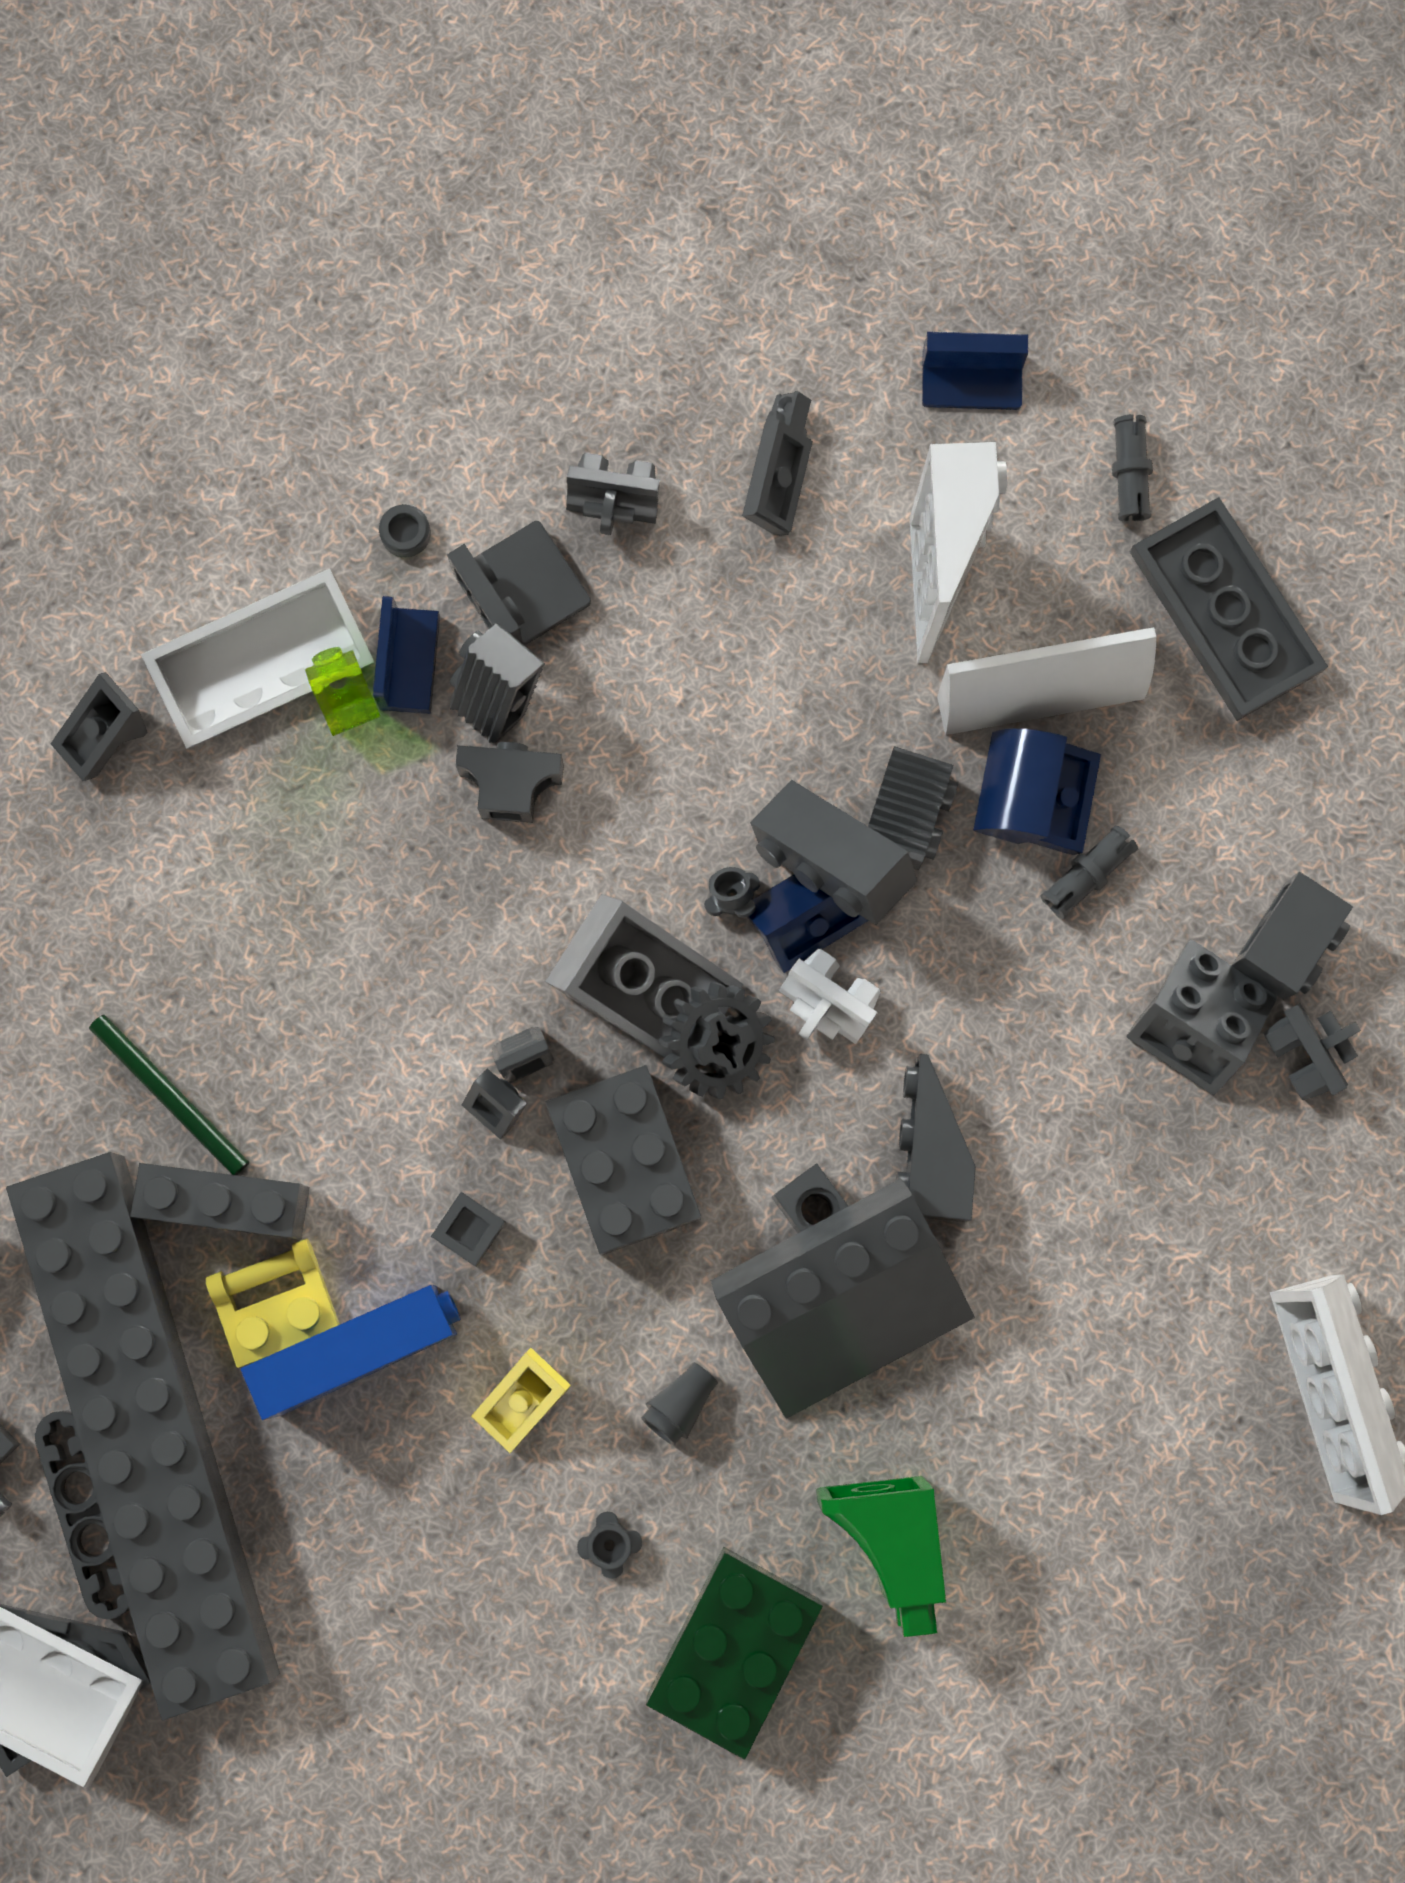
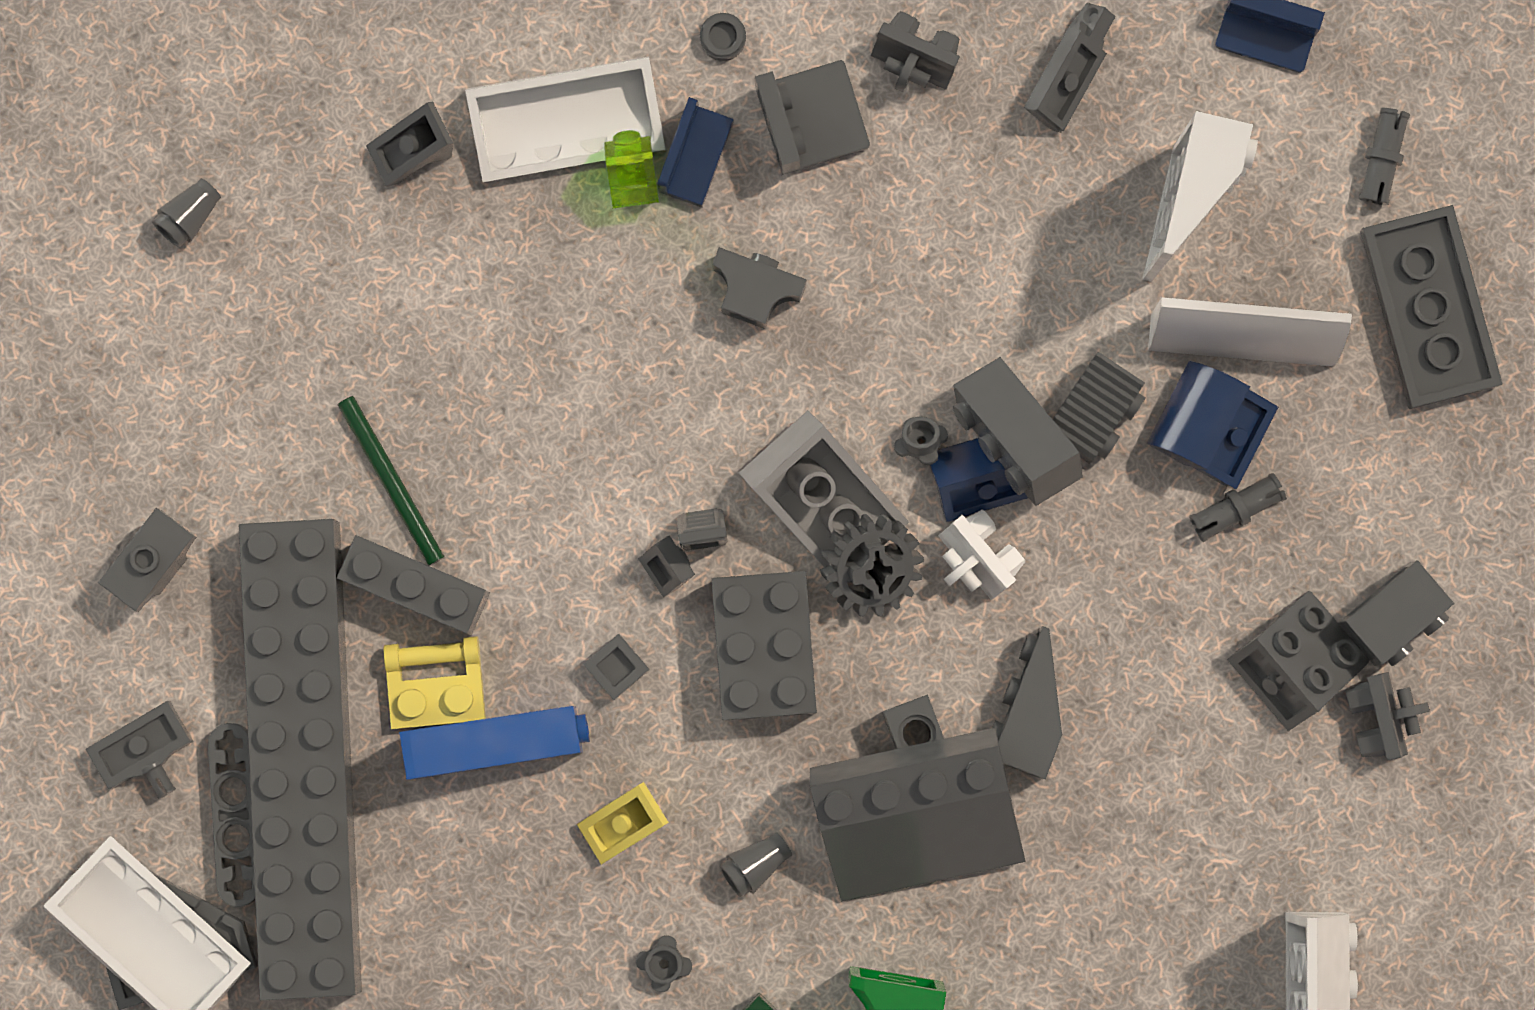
camera: 20 degrees right, 5 degrees up
(494, 681) = (765, 199): dark grey brick -> none

